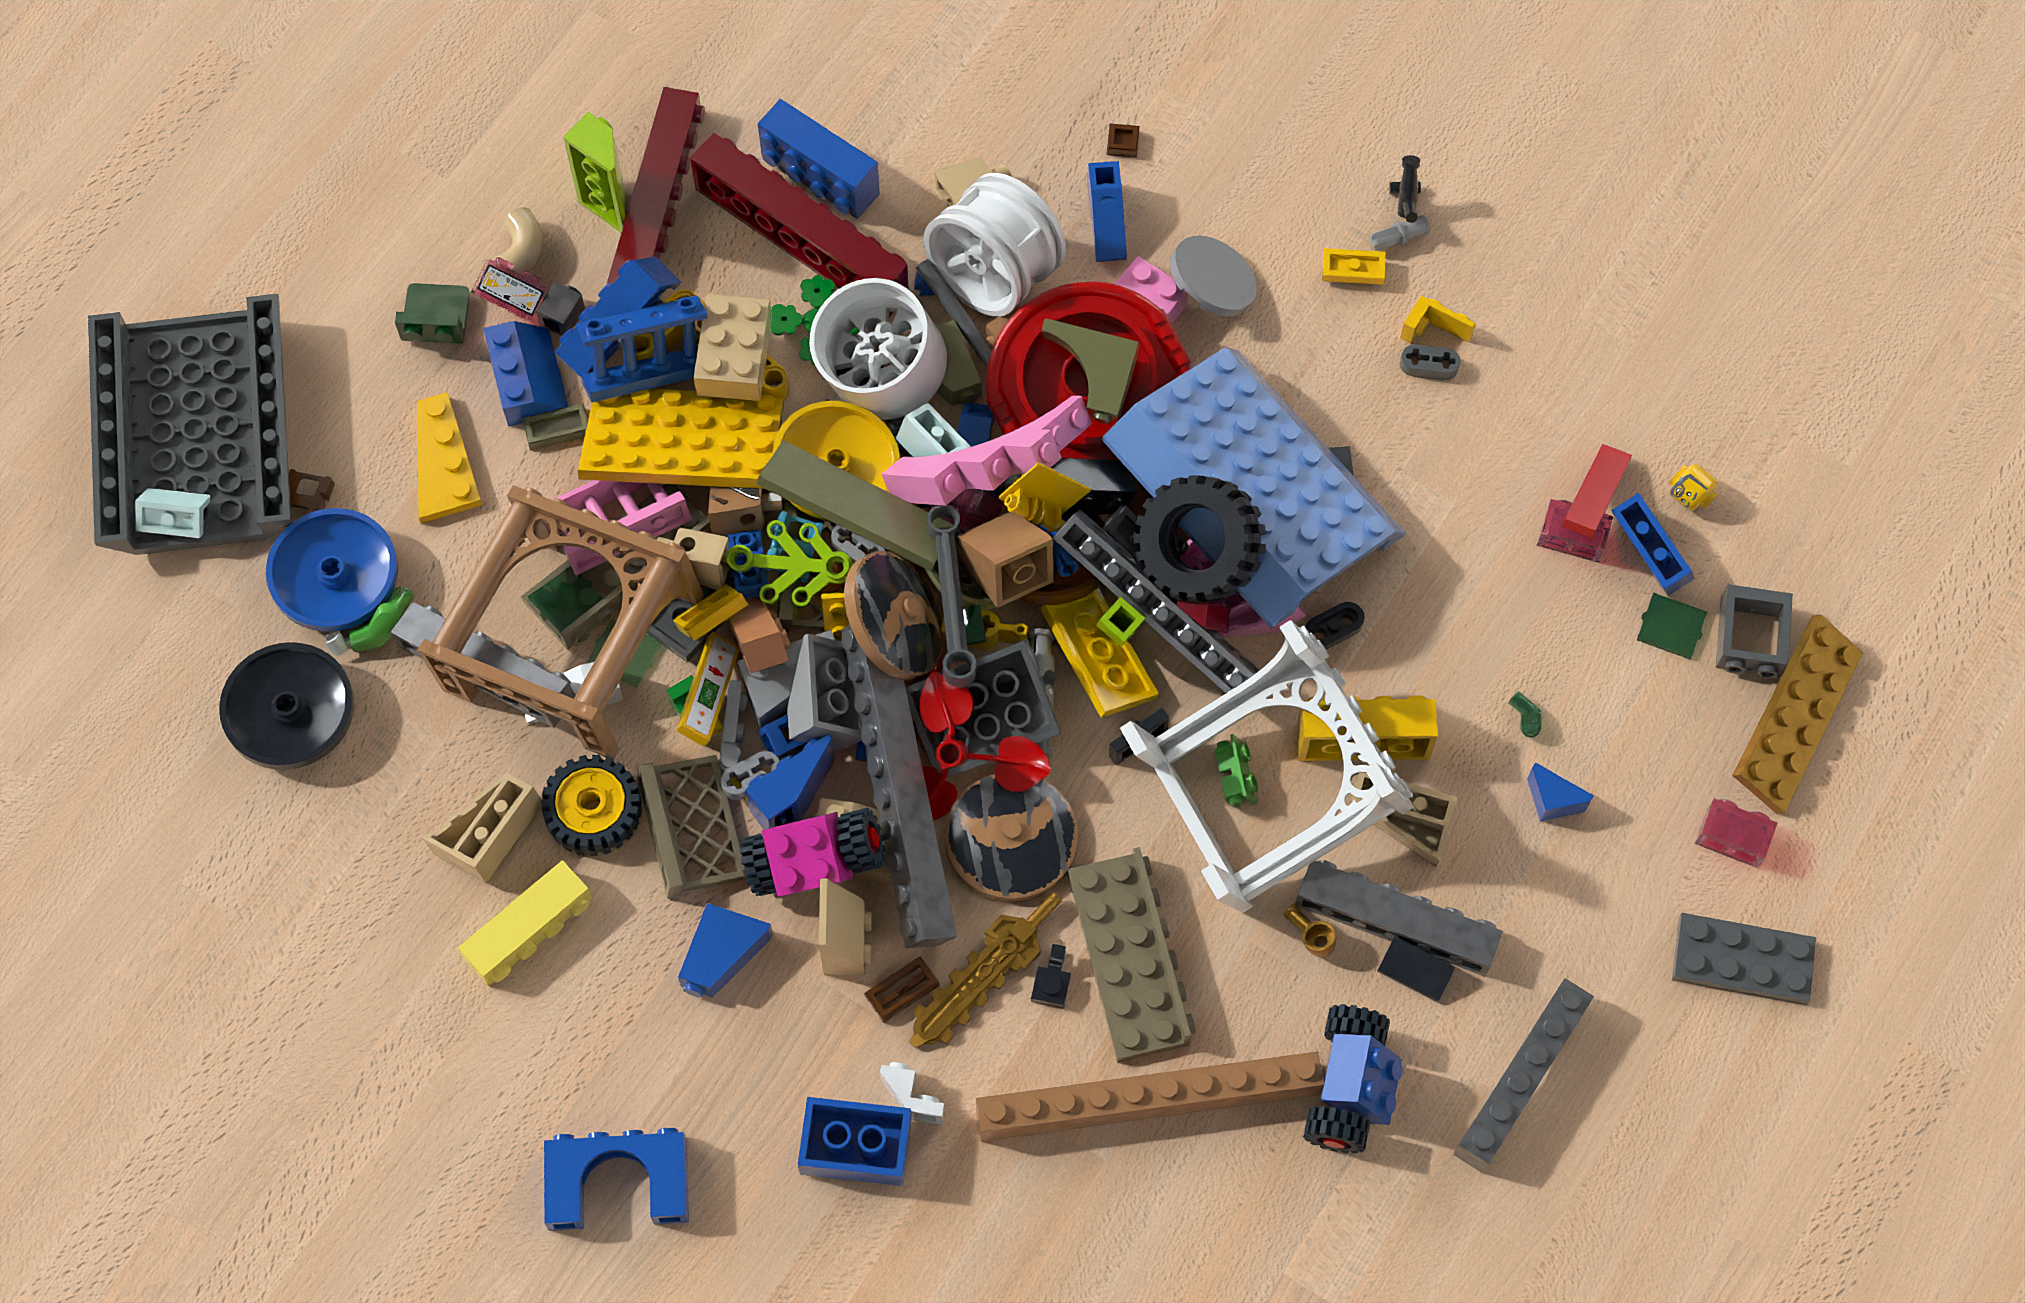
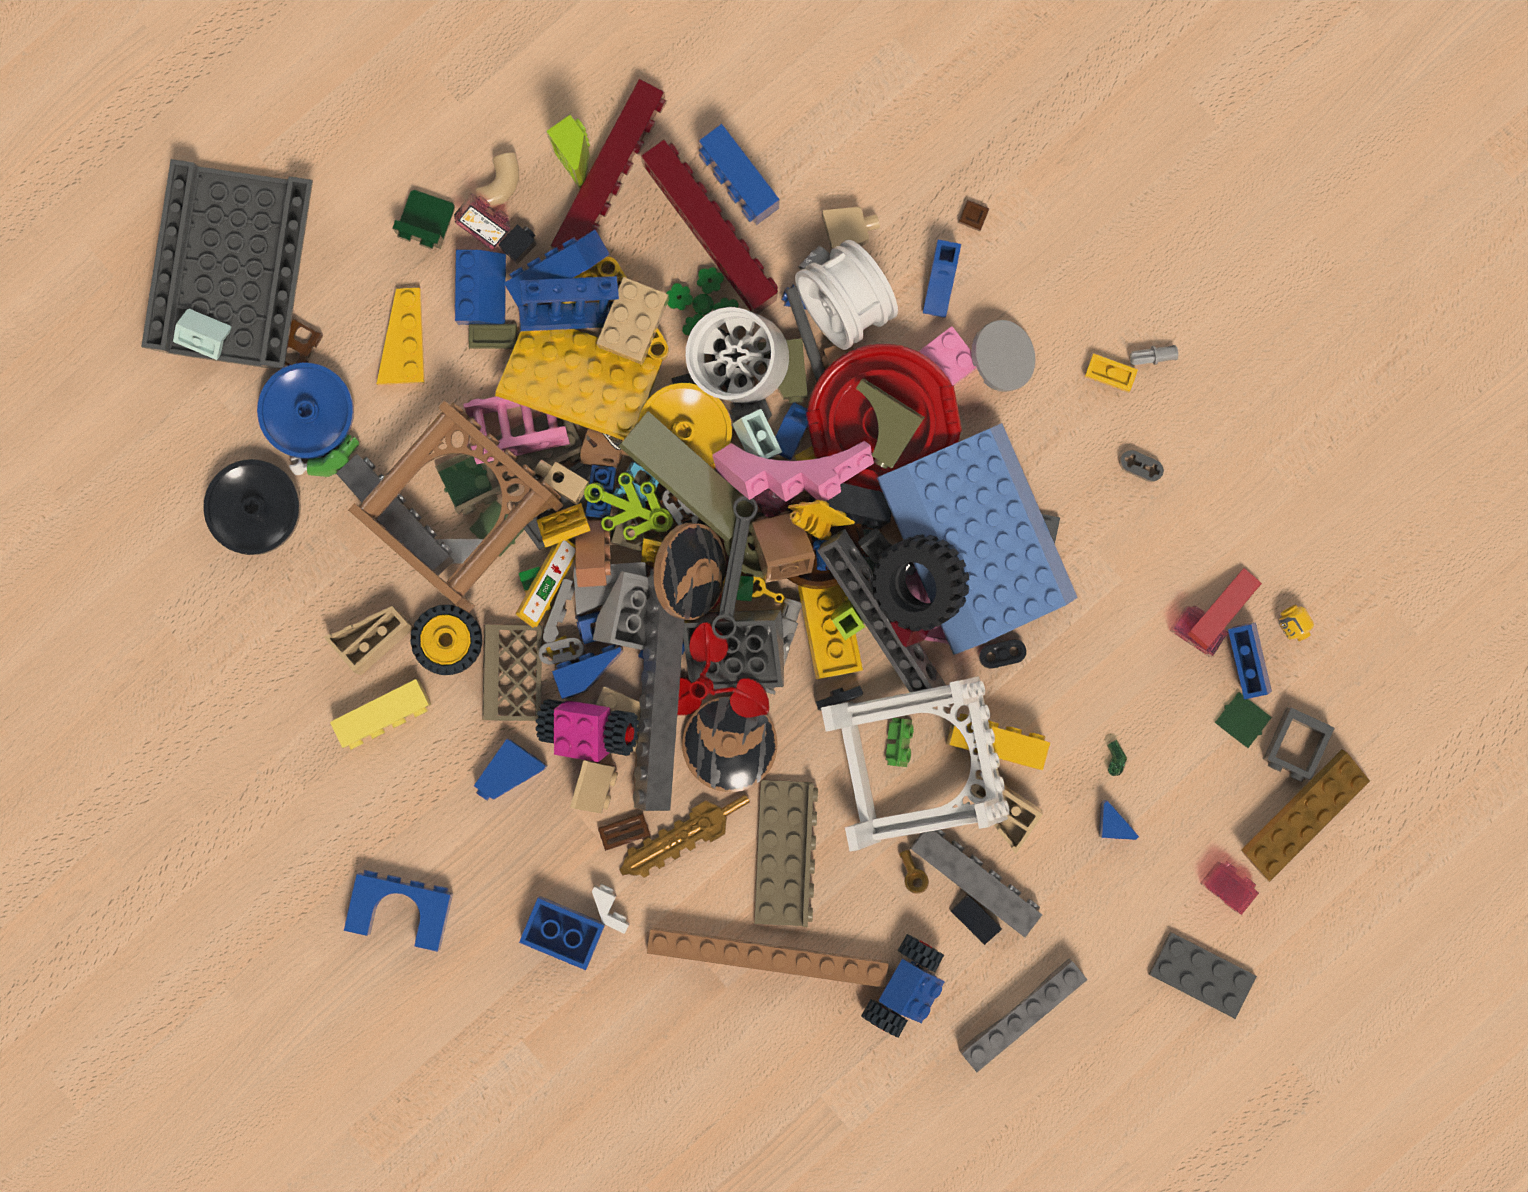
camera: 10 degrees right, 20 degrees up
(1052, 983) = (726, 856): black plate -> none
(1407, 188) = (1173, 320): black piece -> none
(1433, 311) = (1142, 433): yellow bracket -> none

